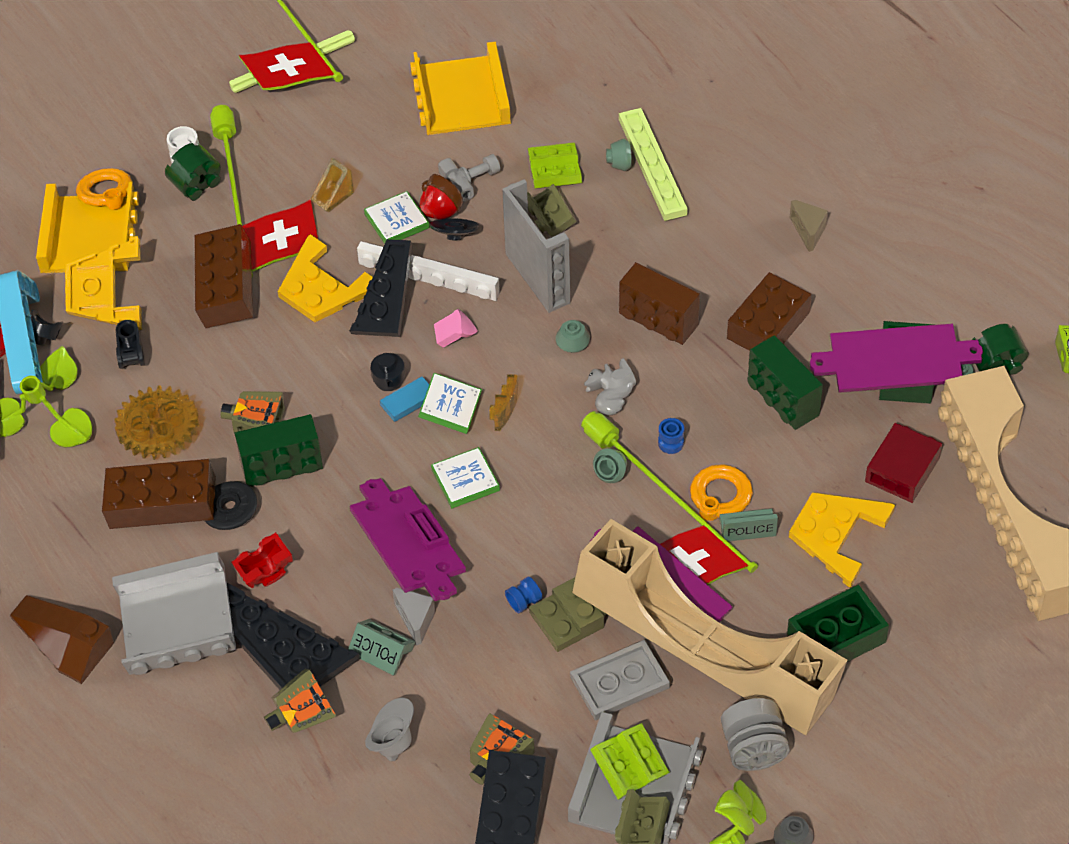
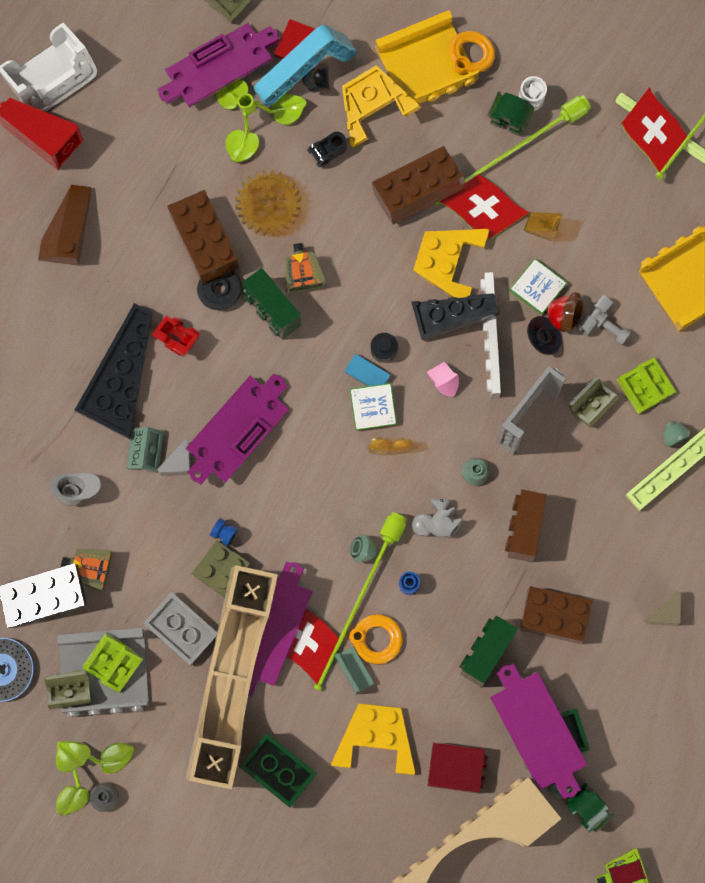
camera: 65 degrees right, 25 degrees up
(175, 613) = (107, 299): light grey panel -> none
(299, 704) = (69, 418): torso -> none
(465, 477) = (312, 446): white tile -> none
(754, 734) = (163, 742): light grey wheel -> none

